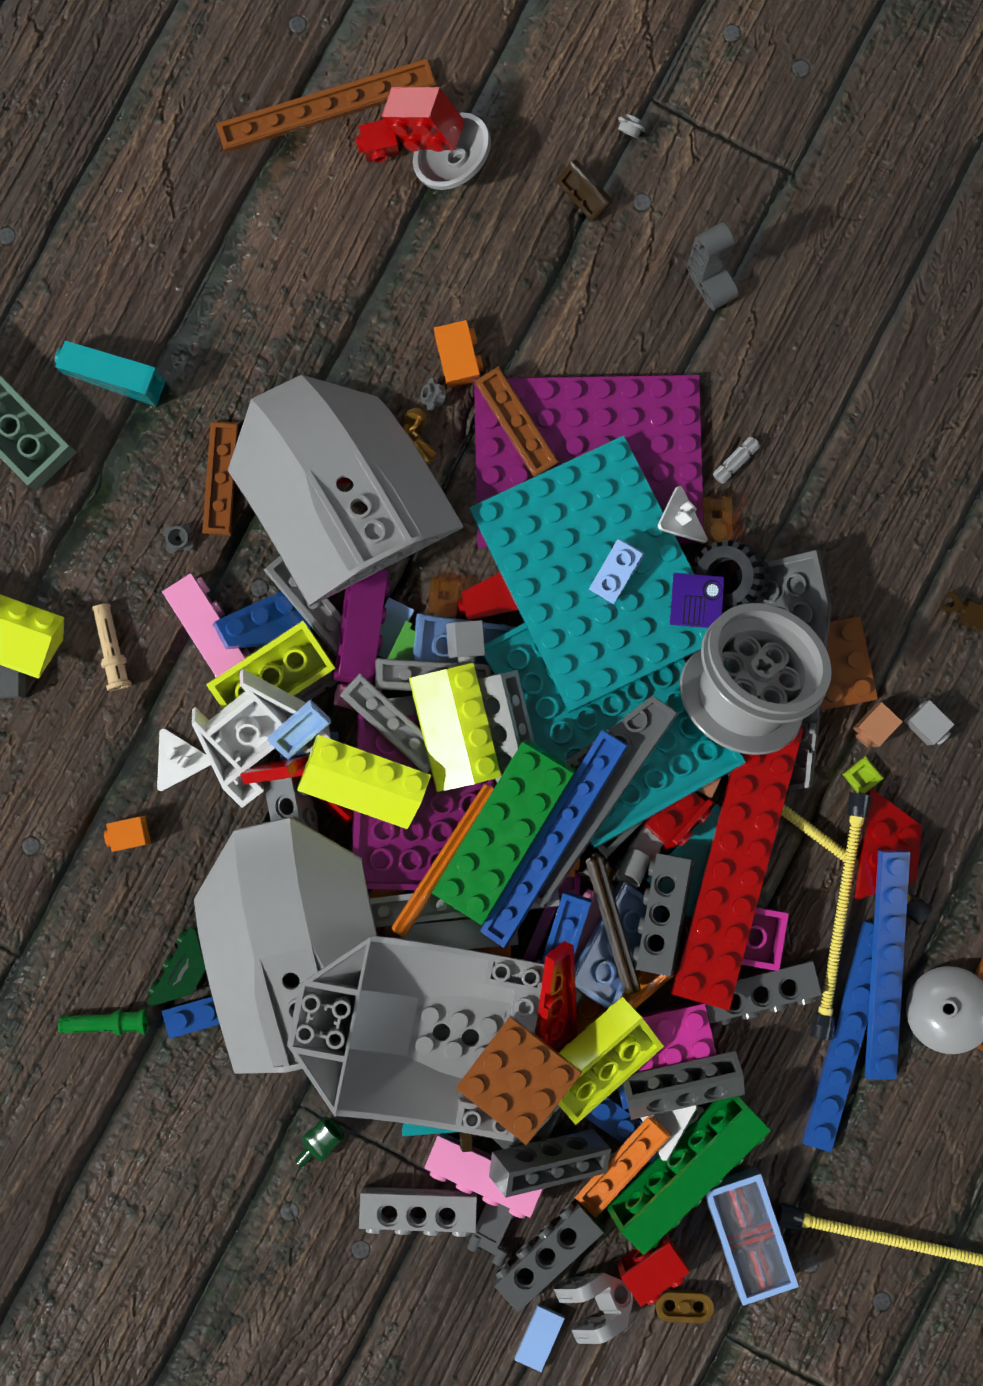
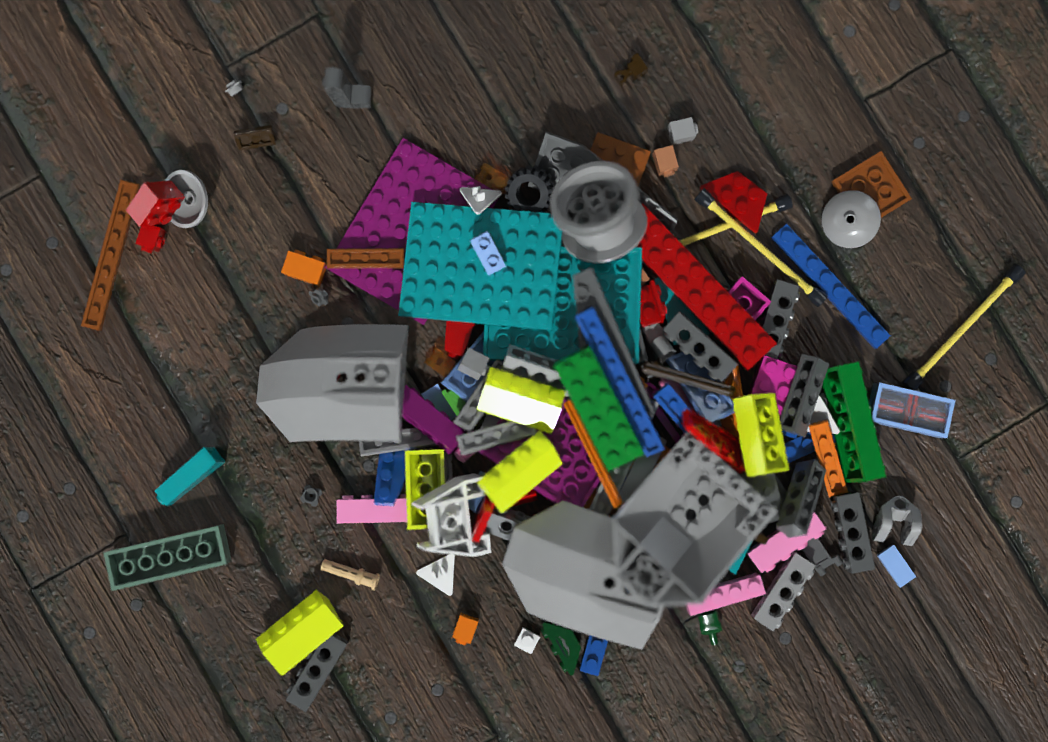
camera: 60 degrees left, 0 degrees up
(118, 1023) = (571, 700): green pin -> none
(160, 921) = (527, 640): none -> white plate
(219, 483) = (291, 450): dark orange tile -> none
(299, 729) = (467, 491): light blue tile -> none
(376, 1145) = (729, 593): none -> bright pink brick
(415, 421) = (328, 317): pearl gold piece -> none
(518, 1080) = (745, 486): dark orange plate -> none
(653, 1272) = (898, 477): red brick -> none
(683, 1306) = (929, 474): pearl gold plate -> none
(696, 600) = (532, 218): dark purple sticker -> none
(736, 460) = (464, 146): light grey axle -> none
(862, 775) = (689, 186): lime tile -> none
(887, 964) = (804, 238): blue plate -> none

